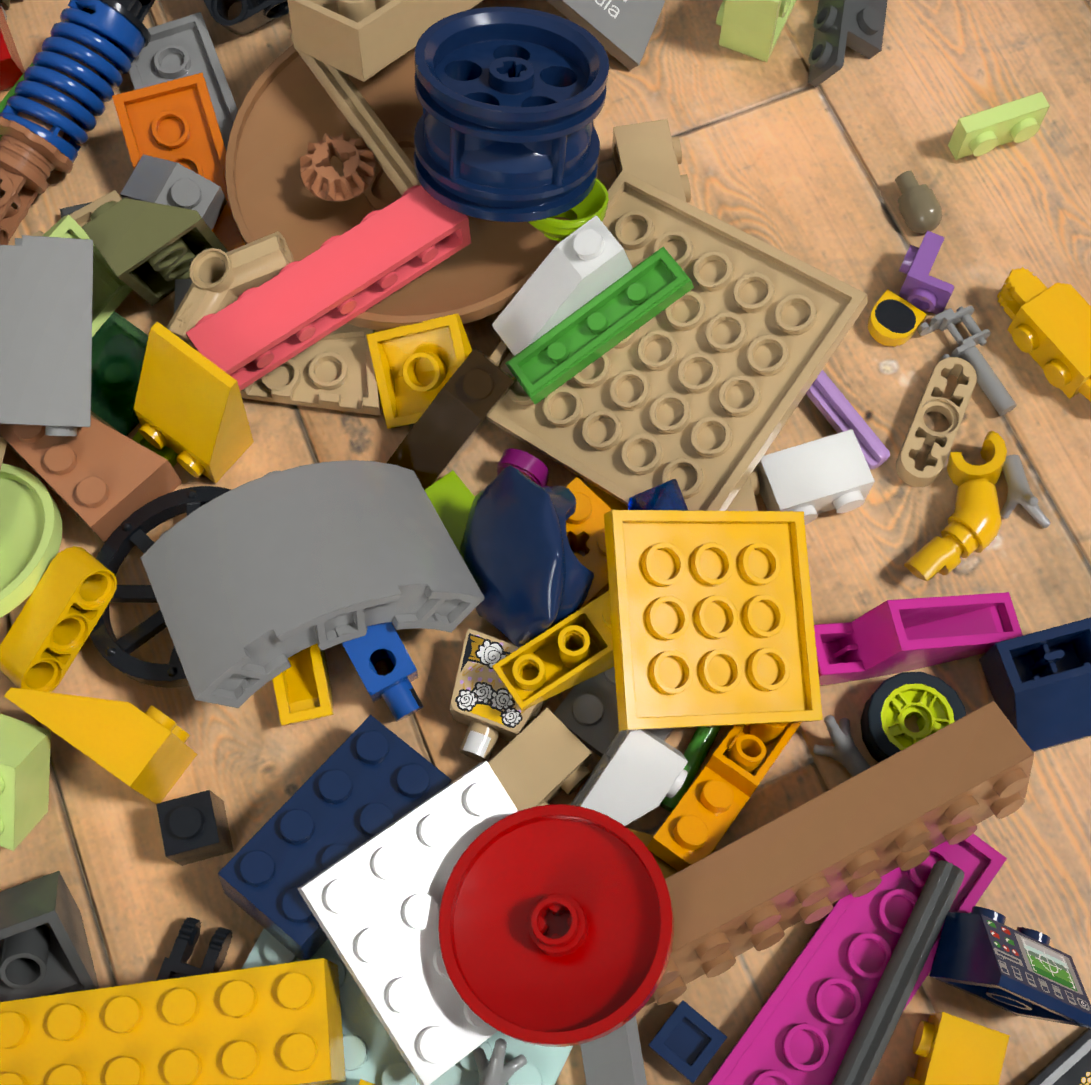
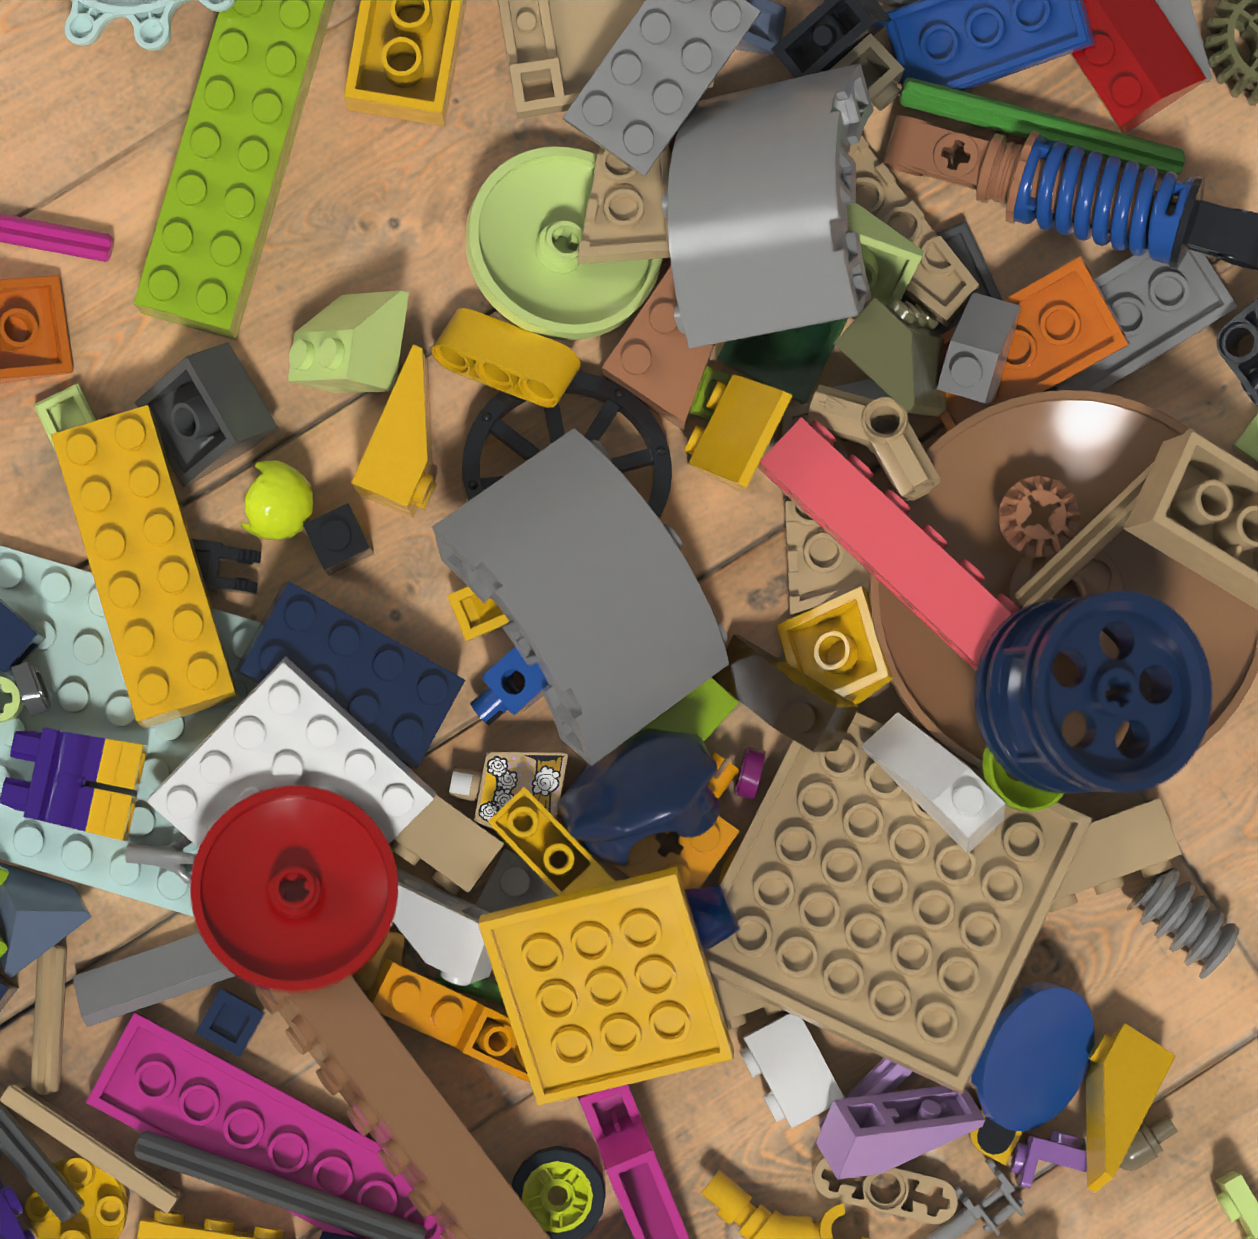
camera: 75 degrees right, 15 degrees up
(136, 881) = (277, 501): none -> neon yellow hair
(599, 325) = (905, 825): bright green tile -> none
(726, 132) = (1186, 920): none -> light grey piece
(835, 256) = (1035, 1057): none -> blue tile
(844, 746) = (520, 1135): light grey bar -> none
(884, 201) = (1118, 1096): none -> yellow slope
(884, 395) = (891, 1128): none -> lavender slope

